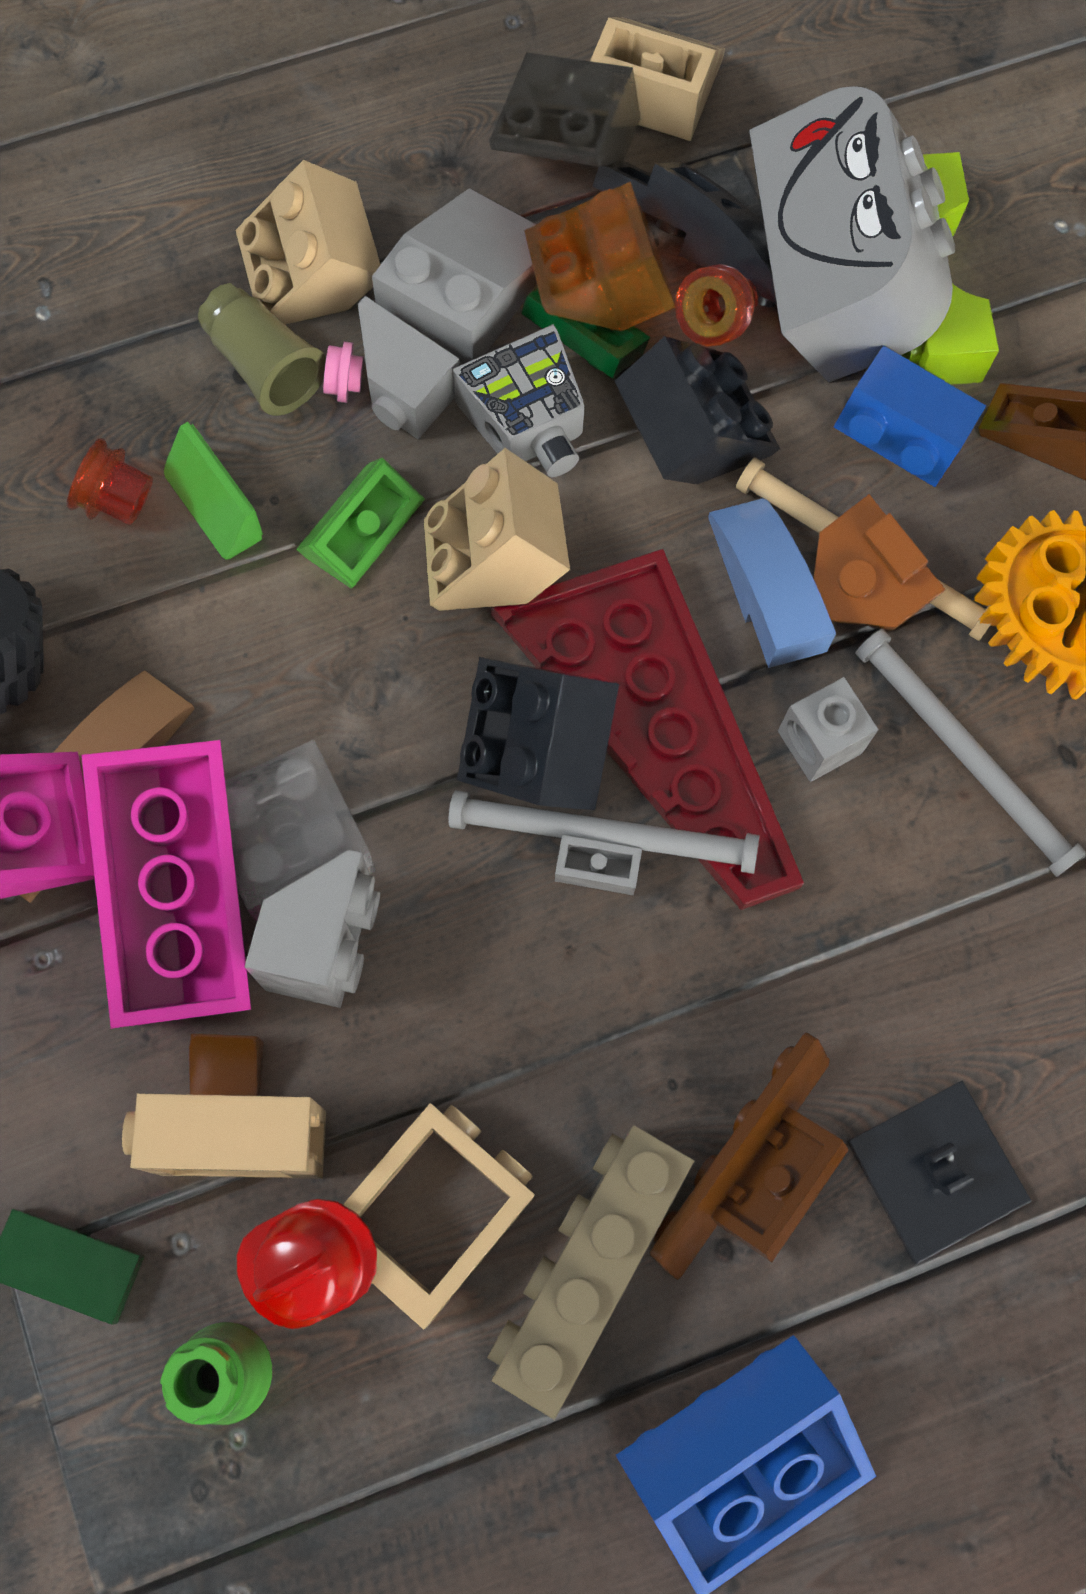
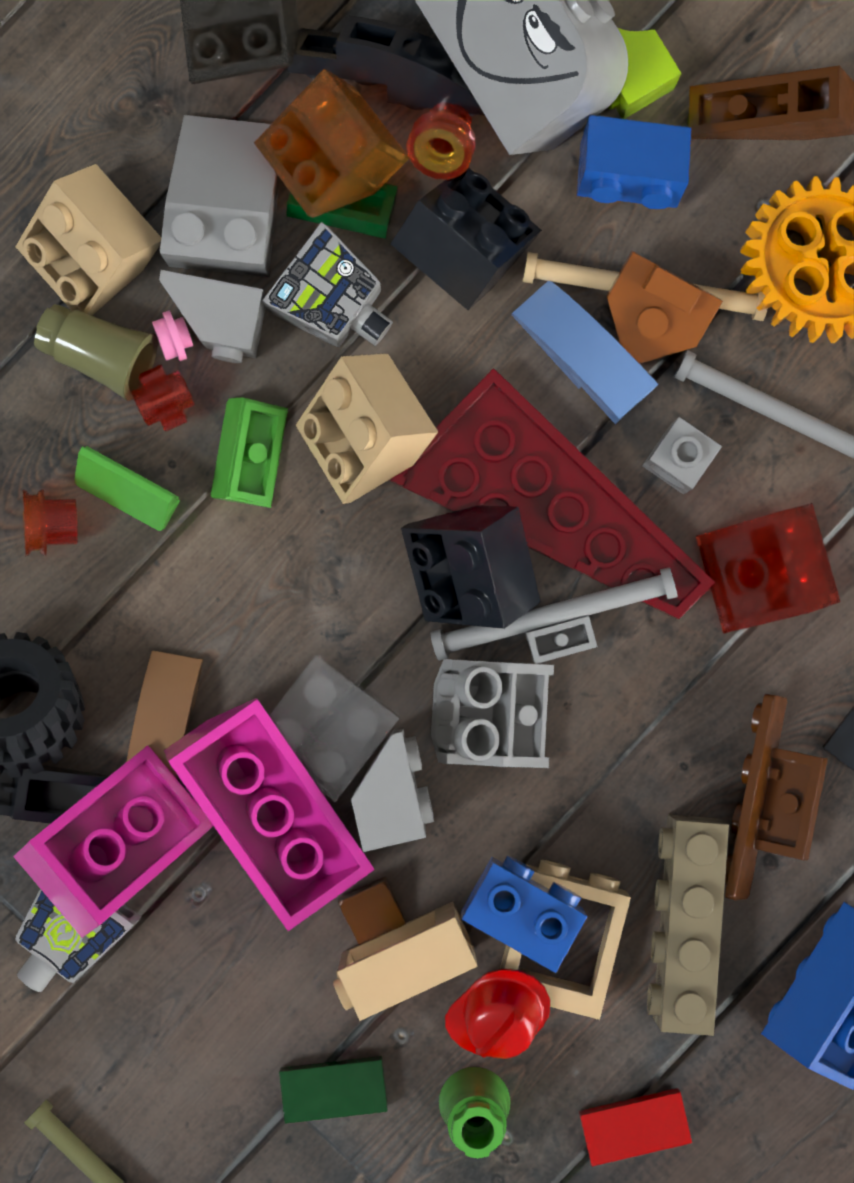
camera: 25 degrees left, 15 degrees up
(299, 421) = (163, 398): none -> clear red gear
(396, 1140) = (525, 913): none -> blue brick
(402, 1505) = (635, 1127): none -> red tile
(480, 908) = (491, 713): none -> light grey slope
(873, 897) = (768, 568): none -> clear red slope

